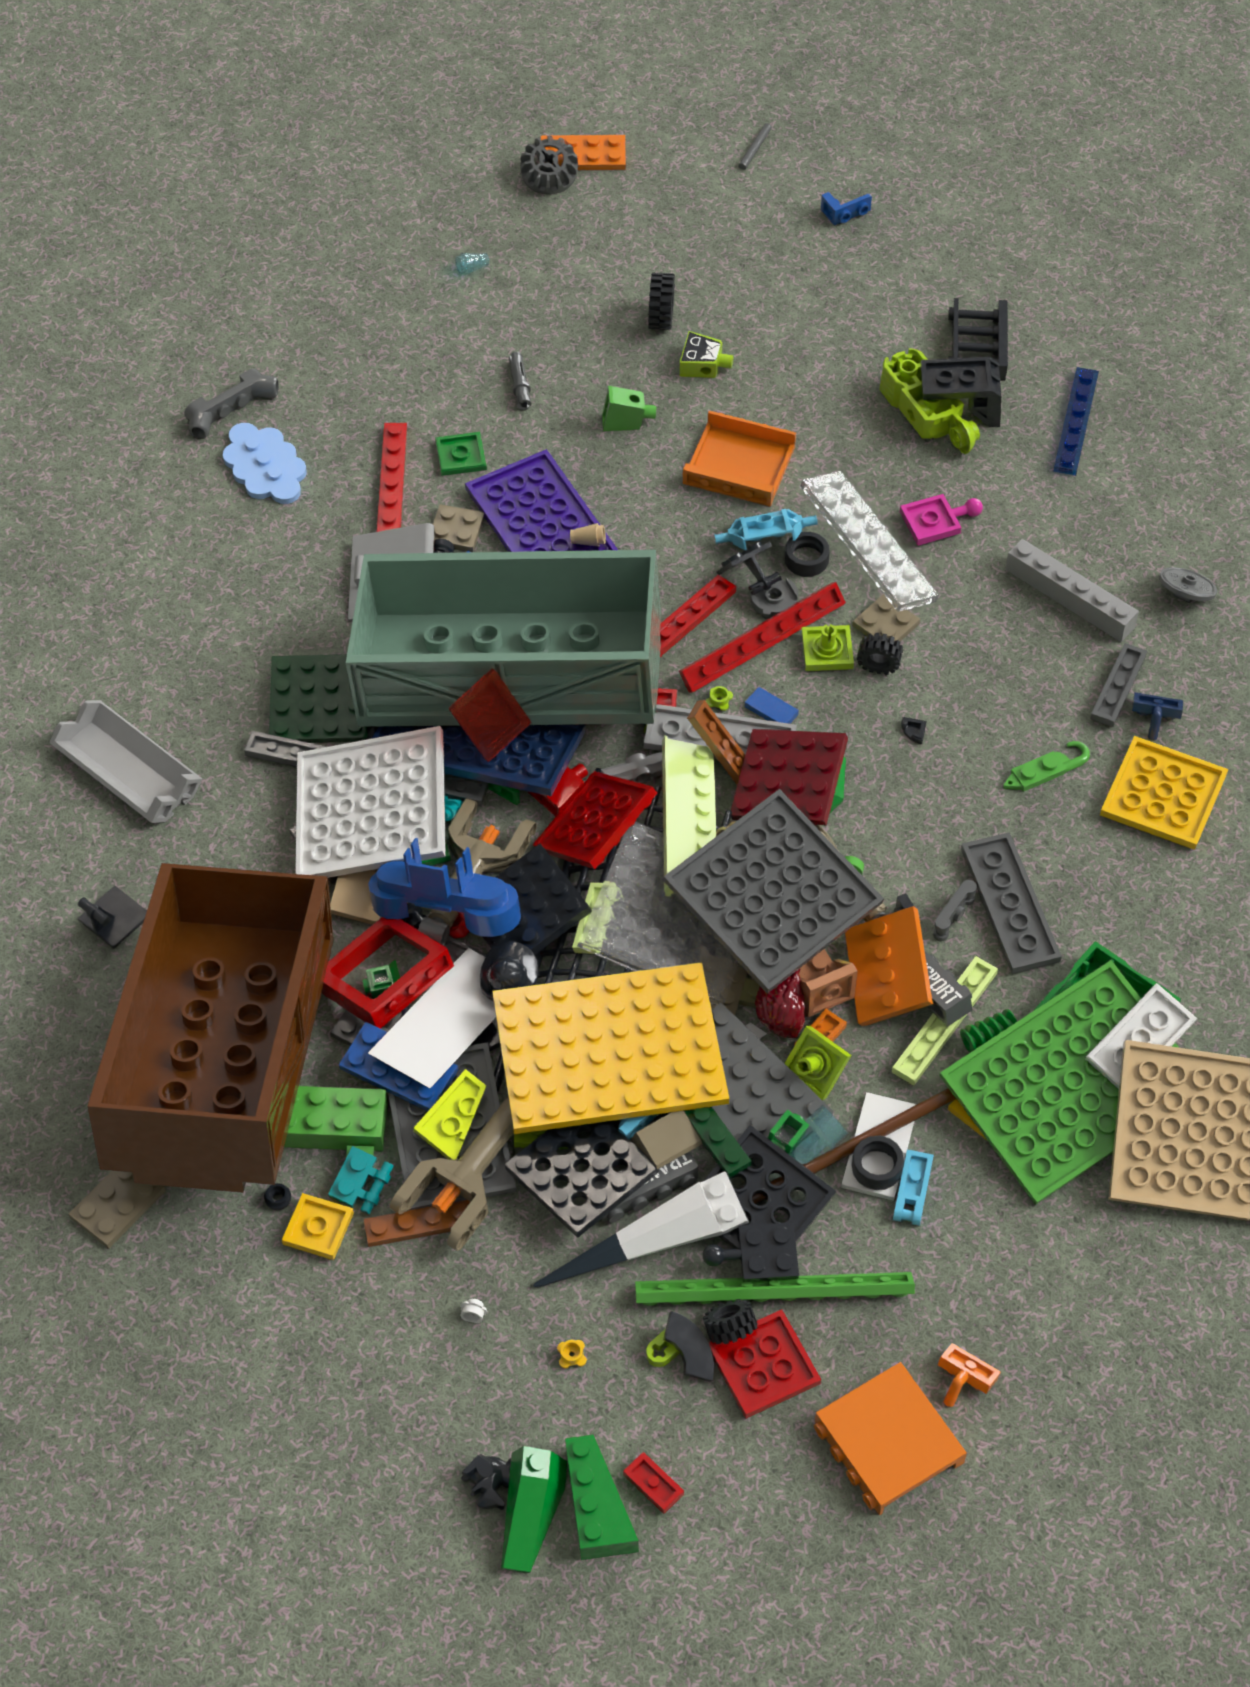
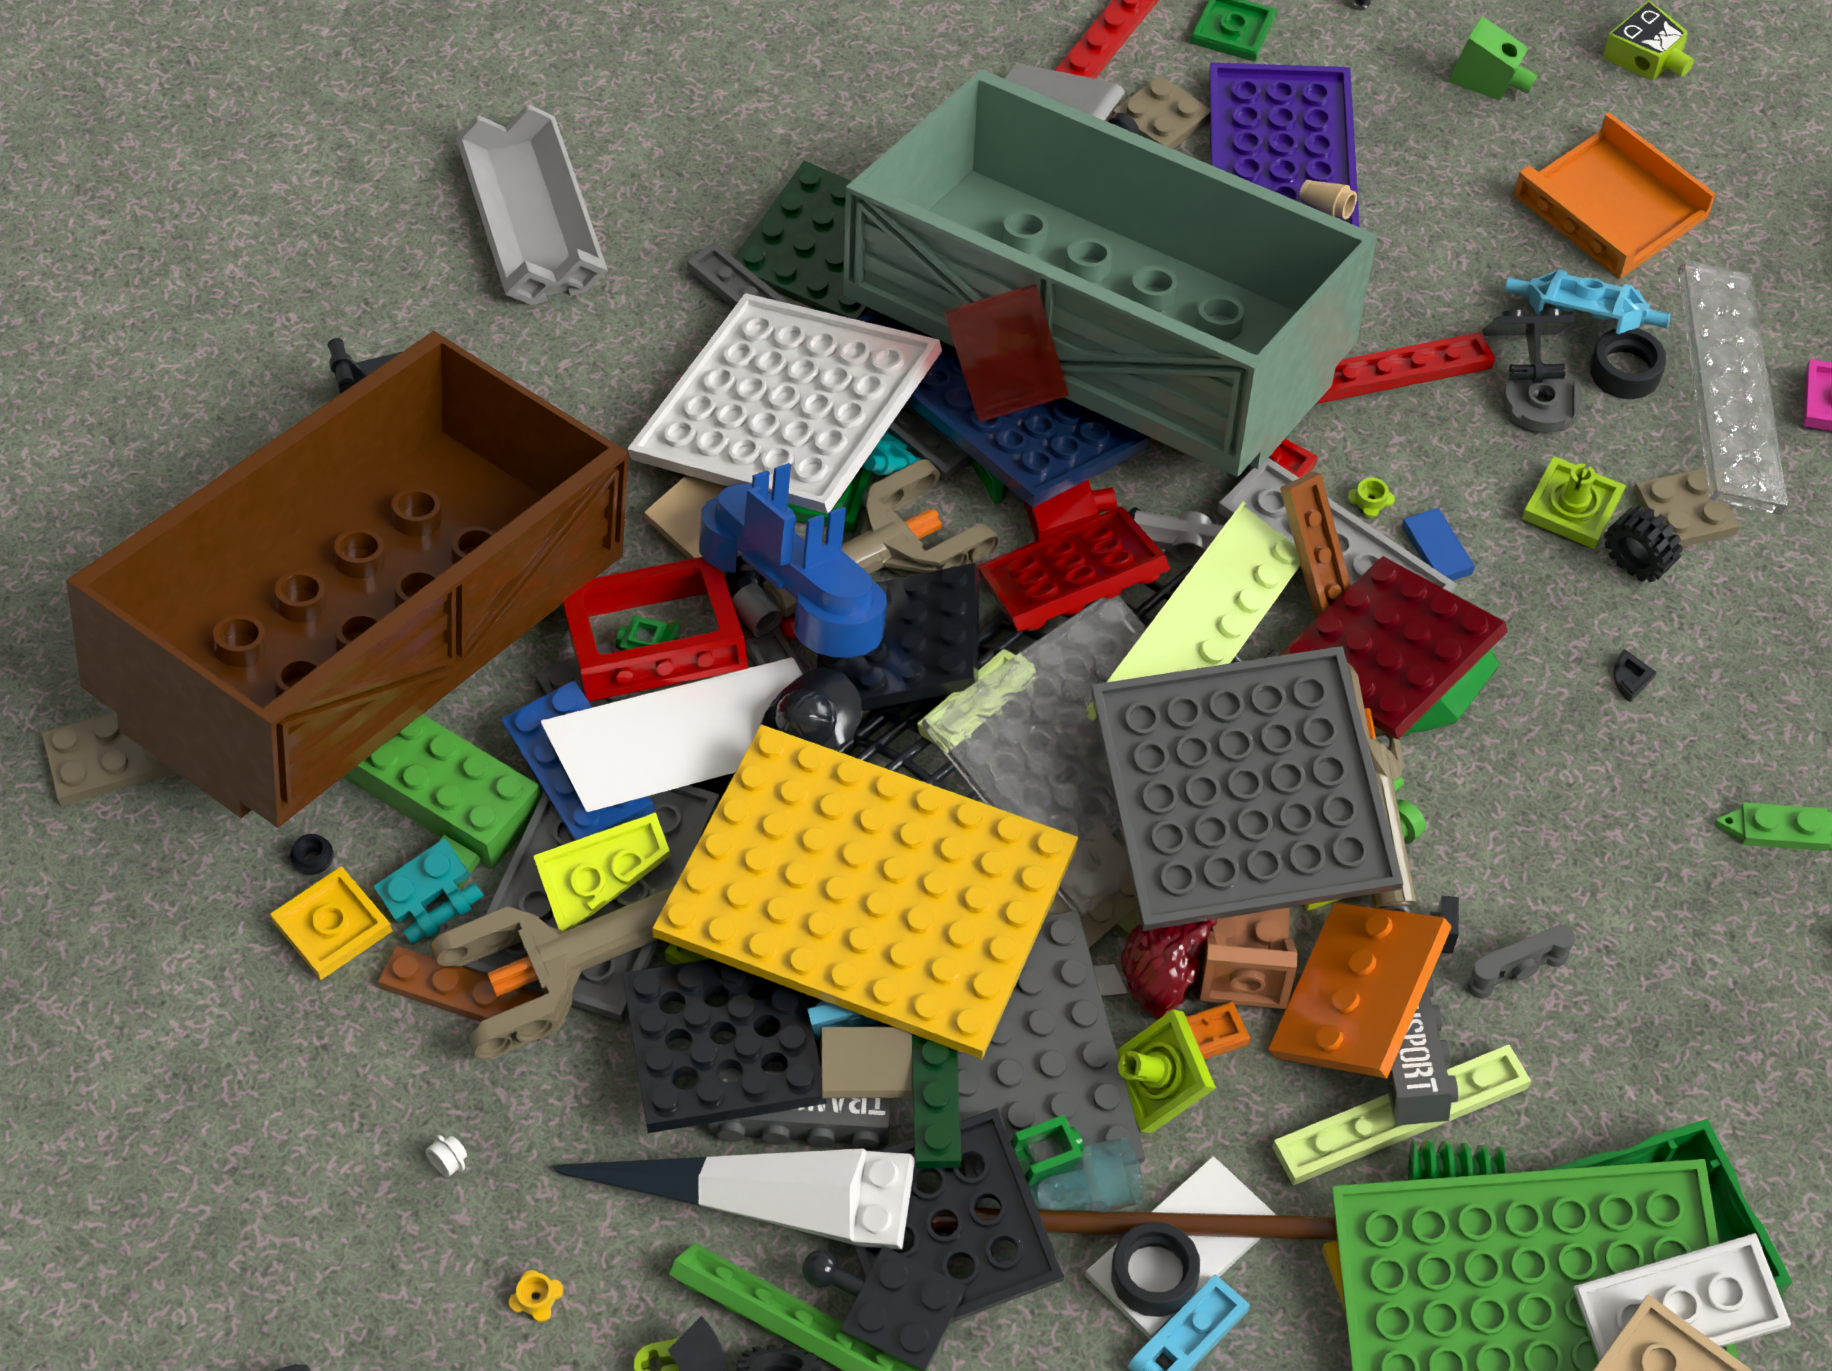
camera: 30 degrees right, 0 degrees up
(762, 637) = (1488, 443): red plate -> none
(1011, 903) = (1616, 997): dark grey plate -> none

